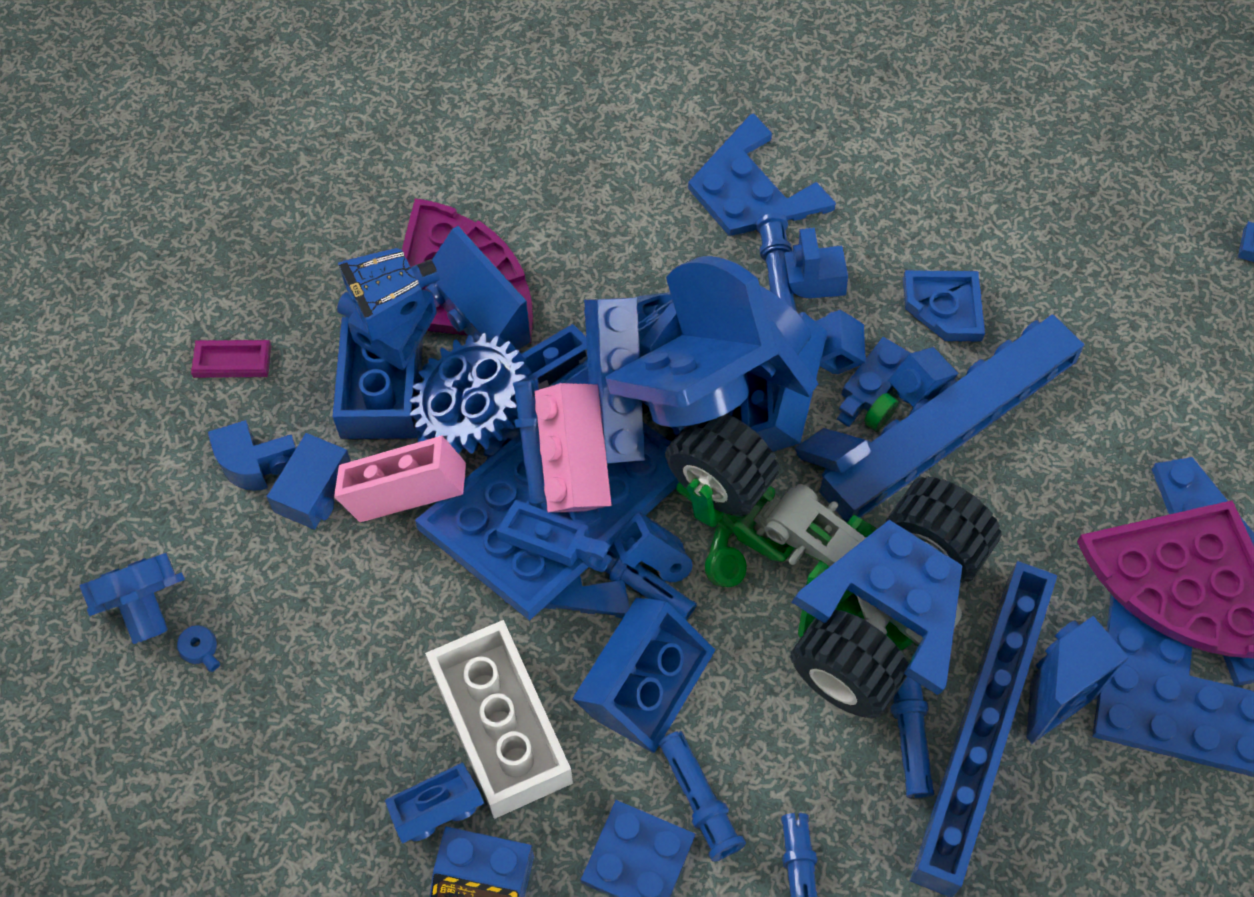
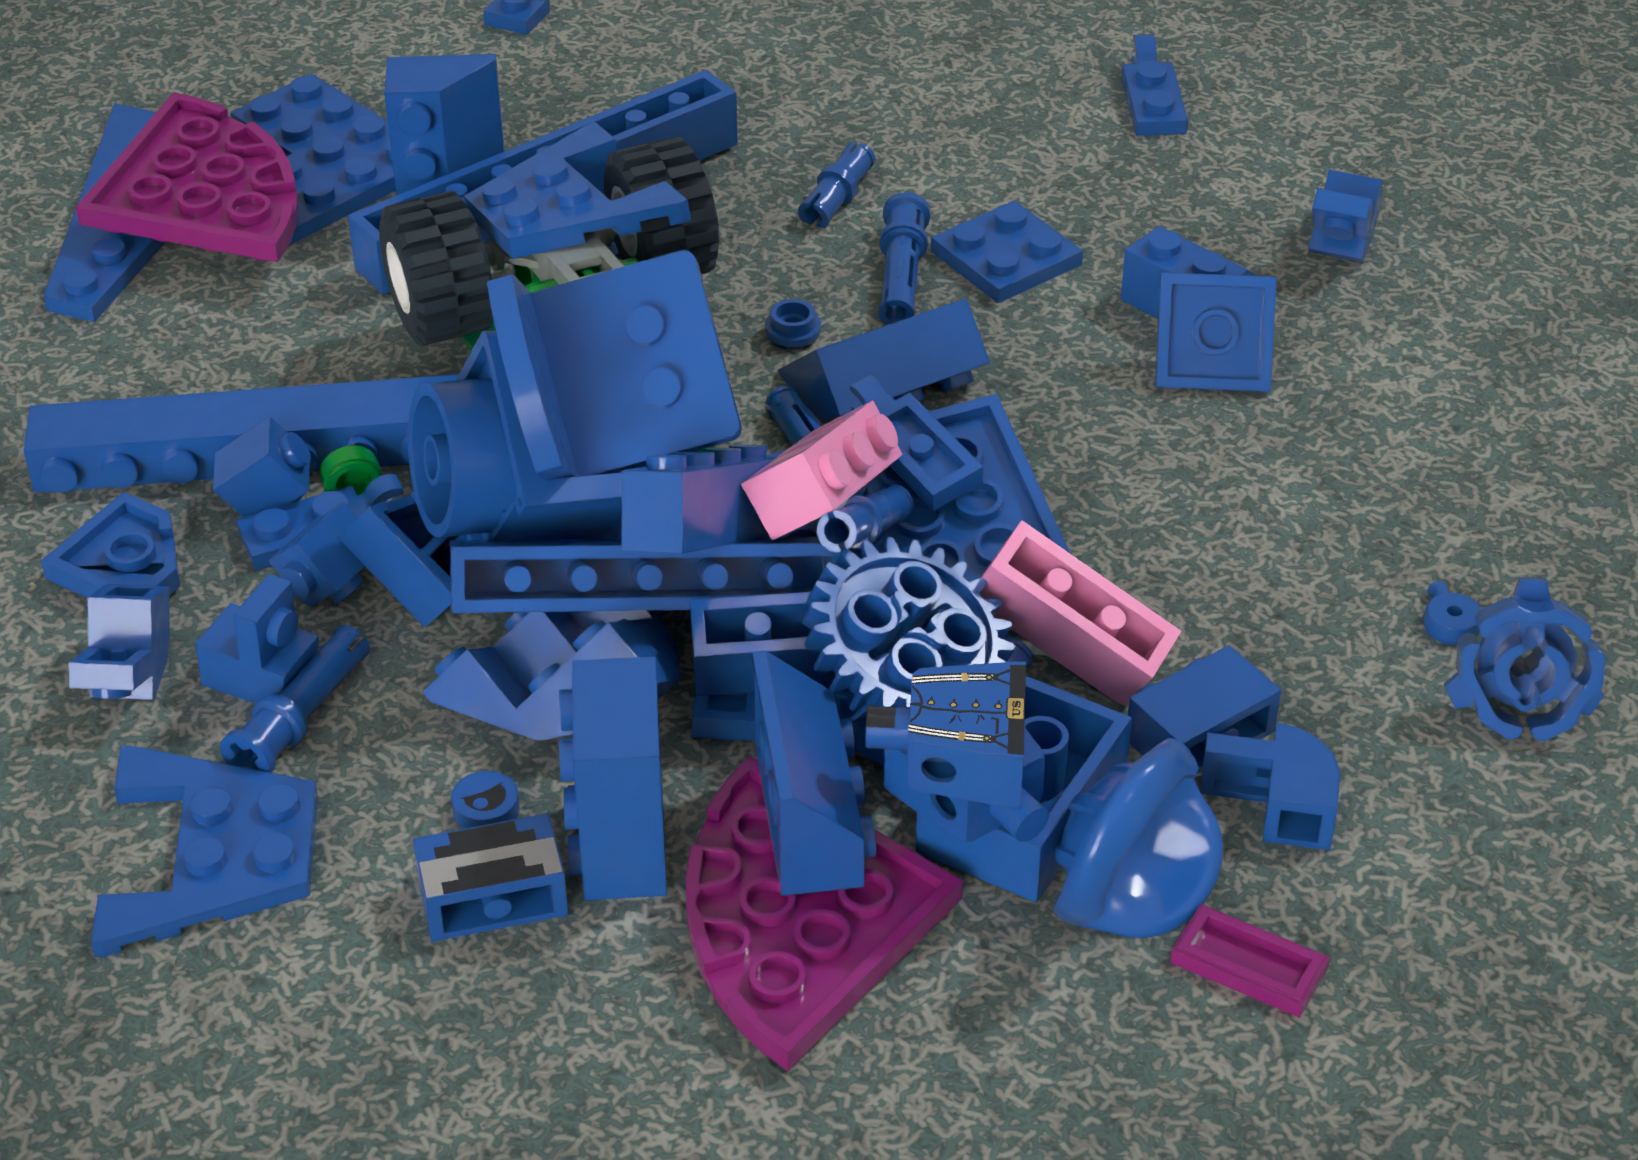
camera: 150 degrees left, 20 degrees down
(299, 337) = (1139, 847): none -> blue piece
(499, 719) = (1091, 377): white brick -> none
(564, 247) = (615, 778): none -> blue brick
(606, 217) = (490, 877): none -> brick
(645, 264) = (484, 799): none -> blue tile
(654, 545) = (785, 419): blue leg -> none
(734, 678) = (793, 323): none -> blue plate
(879, 241) = (125, 642): none -> blue brick

